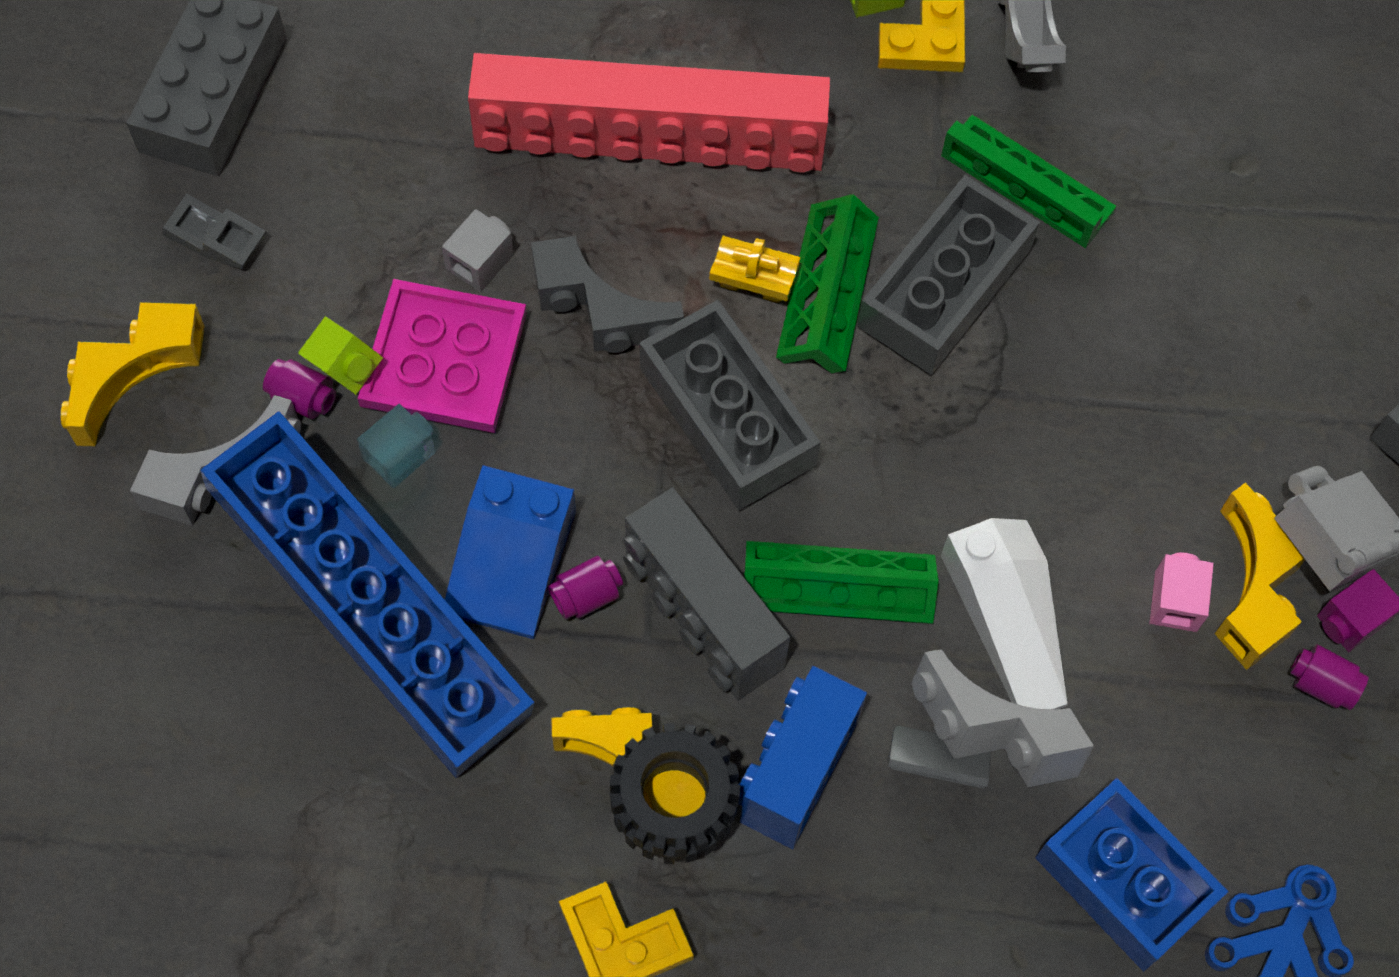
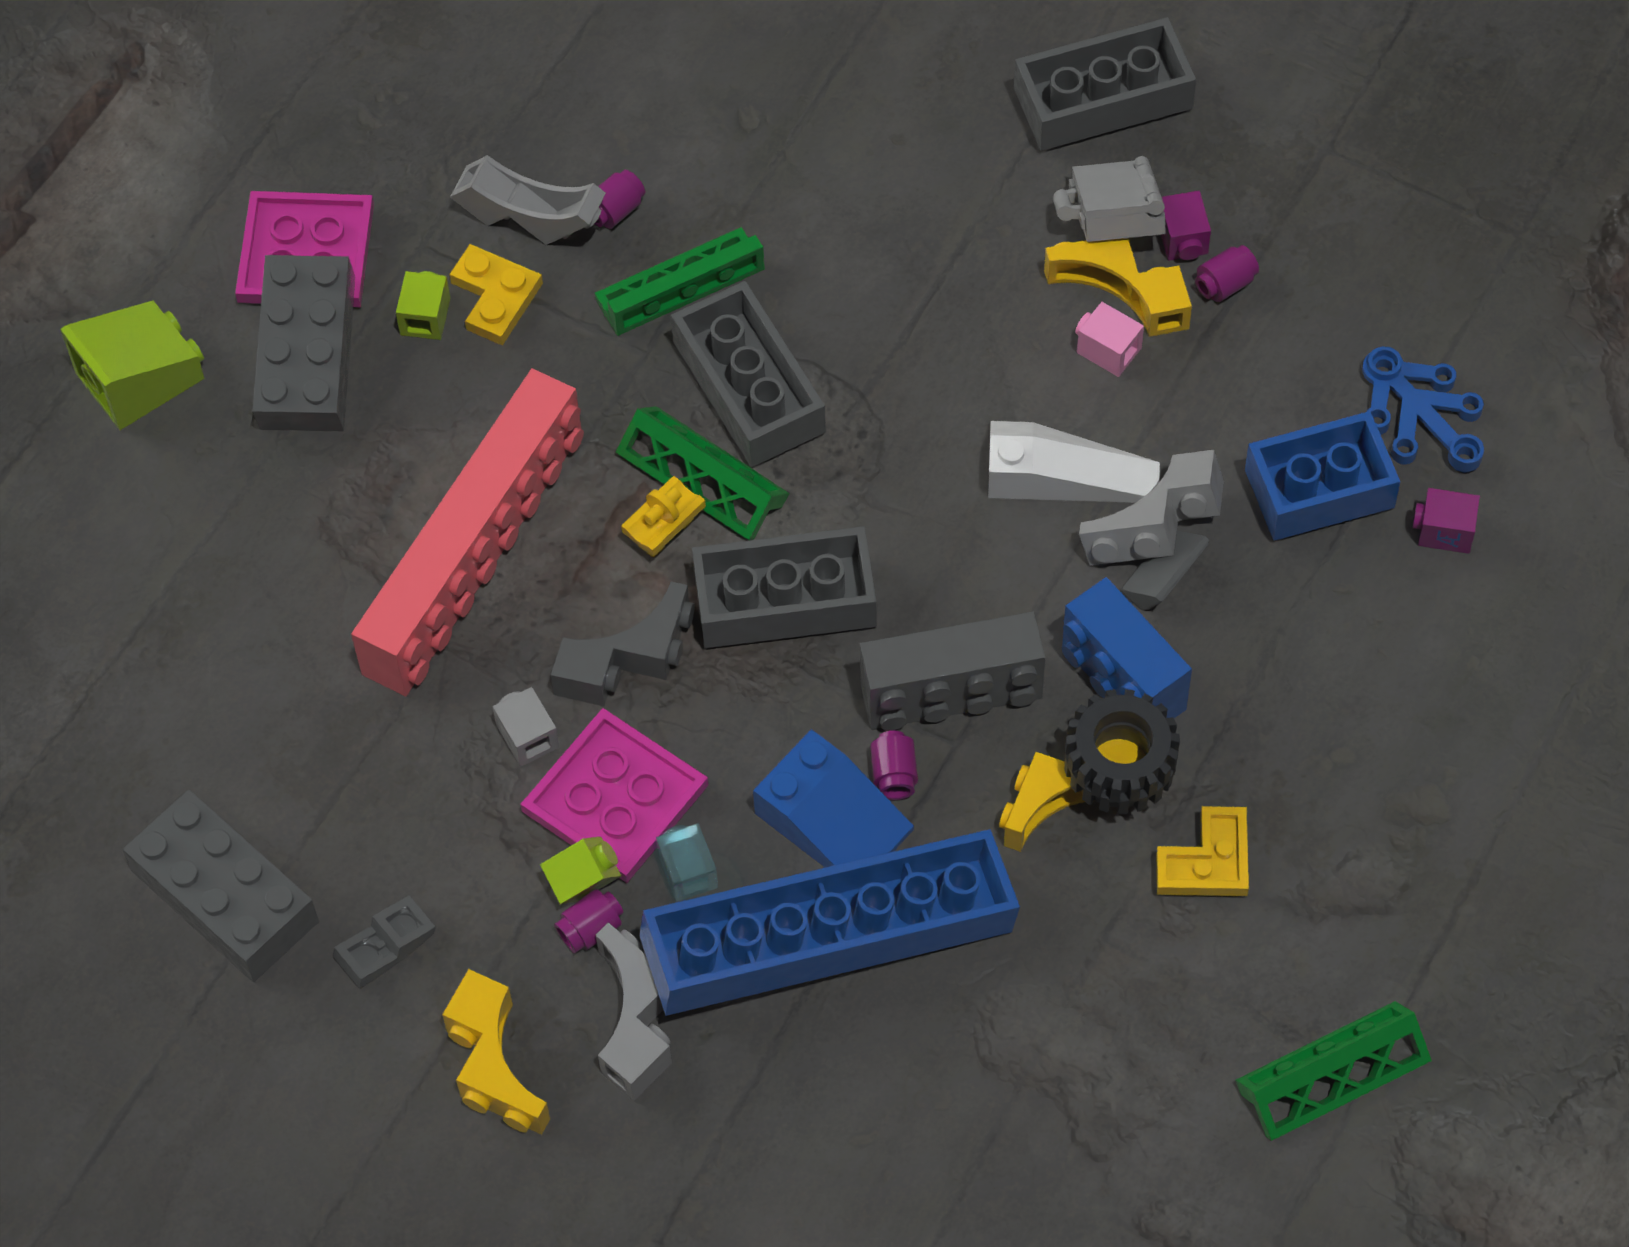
camera: 60 degrees left, 5 degrees down
(839, 583) = (988, 573): green fence -> none
(1079, 85) = (621, 198): none -> magenta brick

